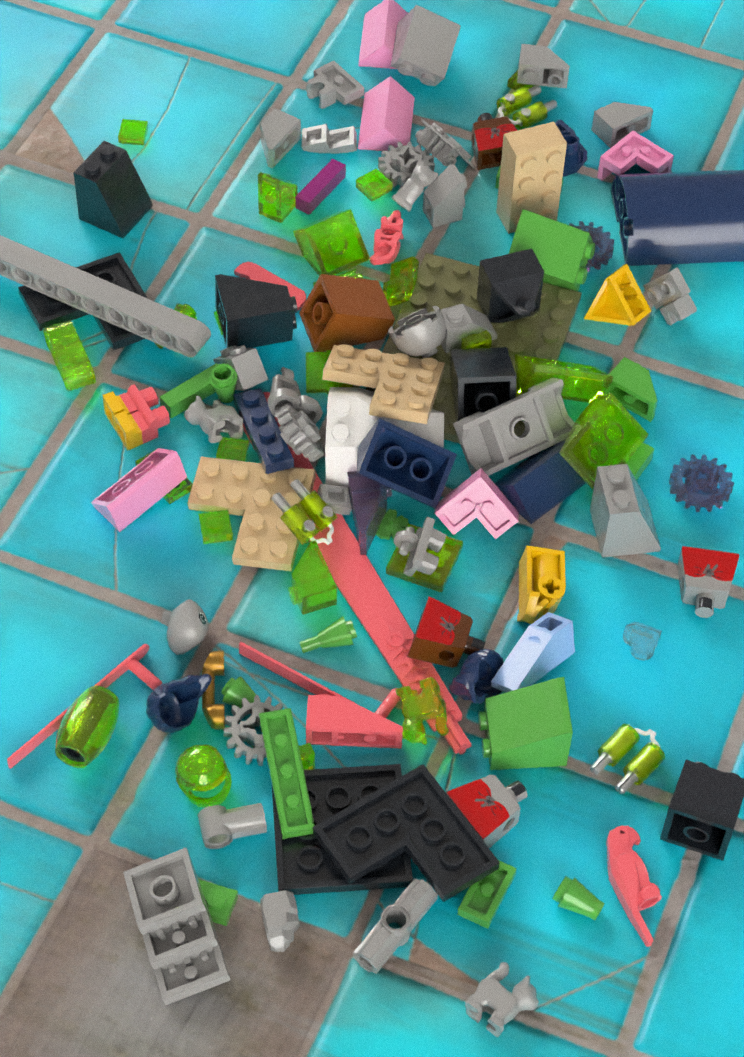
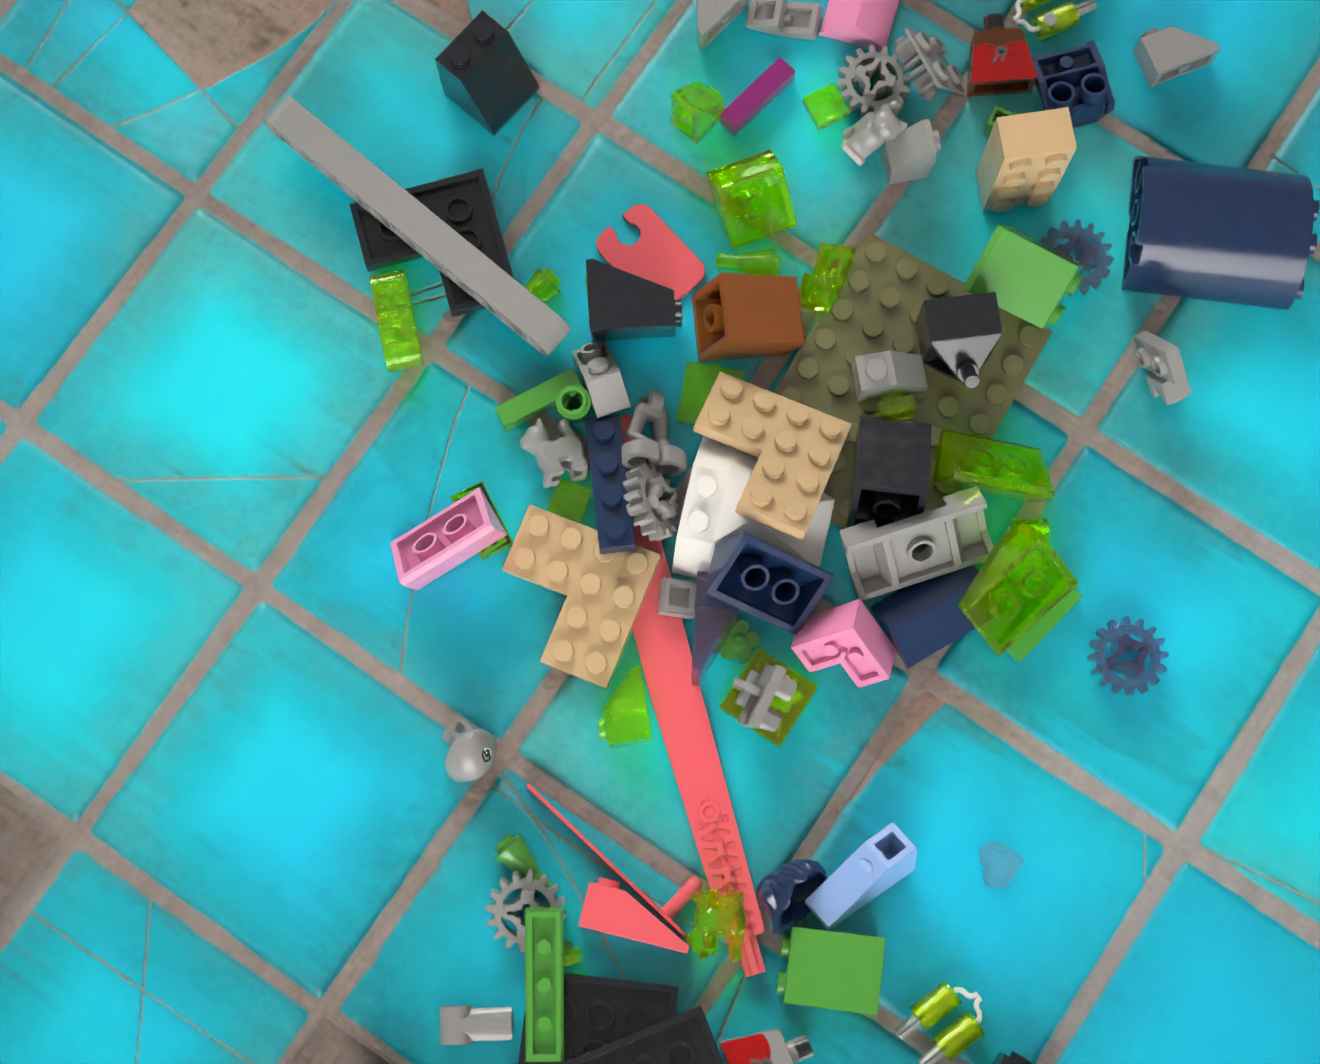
camera: 15 degrees right, 25 degrees up
(87, 726) = (334, 870): clear neon green piece -> none
(131, 663) = (405, 792): coral piece -> none
(132, 415) = (456, 428): hips -> none
(175, 703) = (437, 856): dark blue hair -> none
(201, 770) = (454, 956): clear neon green helmet -> none
(213, 712) = (484, 873): pearl gold bar -> none
(215, 527) = (530, 607): clear neon green plate -> none
(299, 522) = (622, 636): clear neon green piece -> none
(335, 635) = (644, 792): bright green cone -> none
(387, 239) = (823, 209): coral animal -> none
(420, 332) = (827, 378): light grey cylinder -> none
(443, 635) = (764, 824): torso -> none
(540, 582) = (899, 757): yellow piece -> none
(619, 300) = (1097, 356): yellow slope -> none
(621, 514) = (1018, 694): light grey slope -> none
(633, 388) = (1081, 497): bright green slope -> none
(634, 150) = (1178, 116): bright pink panel -> none
(706, 578) = (1097, 799): torso -> none

